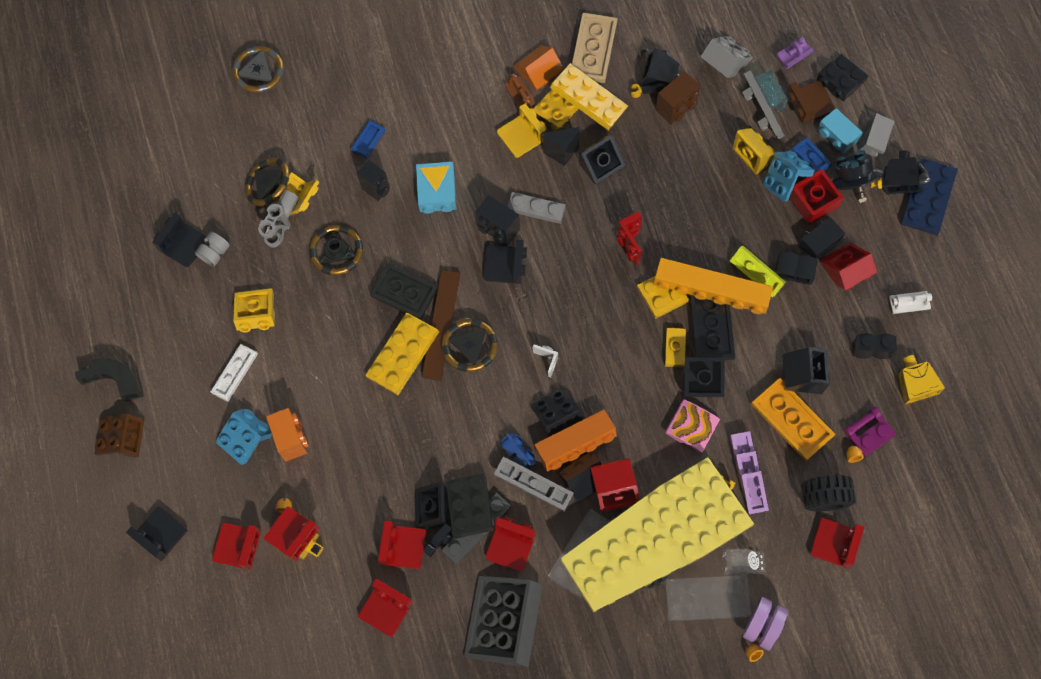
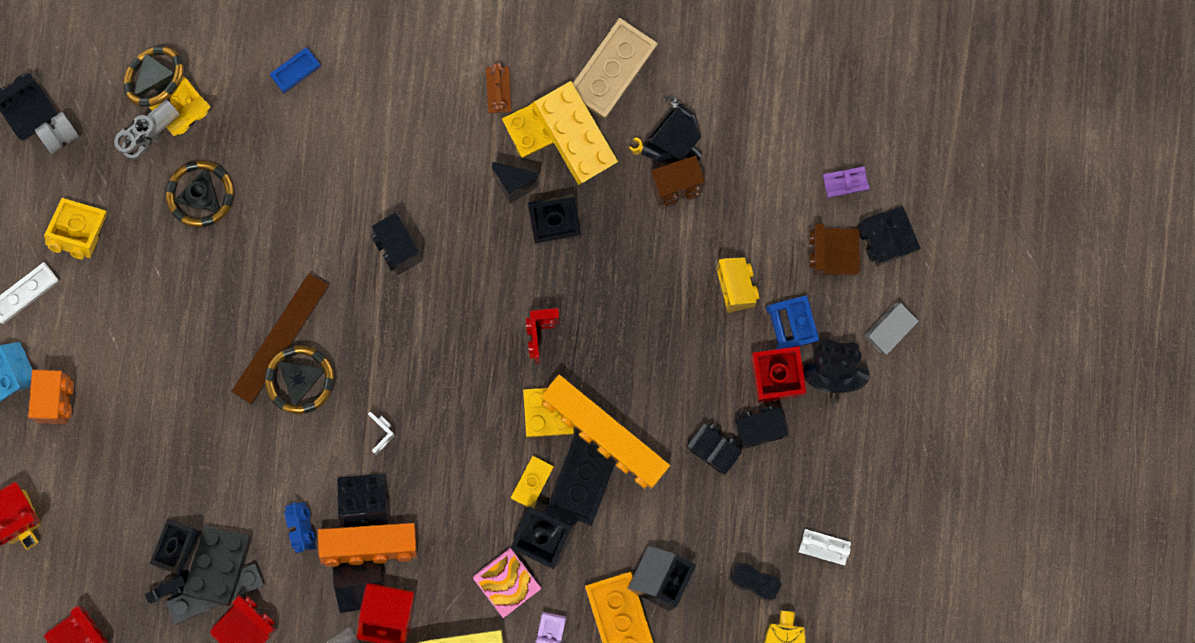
camera: 15 degrees right, 10 degrees up
(281, 505) = (15, 476): light orange hinge -> none
(373, 180) = (275, 130): black brick -> none
(401, 546) = (124, 578): red bracket -> none
(402, 353) = (220, 355): yellow plate -> none
(404, 291) = (254, 280): pearl dark grey plate -> none
(436, 187) = (346, 168): medium azure brick -> none
(505, 263) = (384, 297): black bracket -> none
(522, 132) = (477, 142): yellow bracket -> none
(533, 484) = (298, 573): light grey hinge -> none
(537, 207) = (452, 242): light grey plate -> none
(540, 66) = (537, 64): orange slope -> none
(726, 56) = (764, 149): light grey slope -> none
(757, 270) = (668, 434): neon yellow plate -> none
(768, 121) = (777, 213): light grey hinge -> none
(772, 91) = (792, 219): clear light blue bracket -> none
(784, 173) = (757, 329): dark azure bracket -> none
(839, 131) = (849, 304): medium azure brick -> none
(849, 266) = (775, 473): red slope -> none
(903, 175) = (893, 392): black torso -> none
(927, 208) = (914, 429): dark blue plate -> none

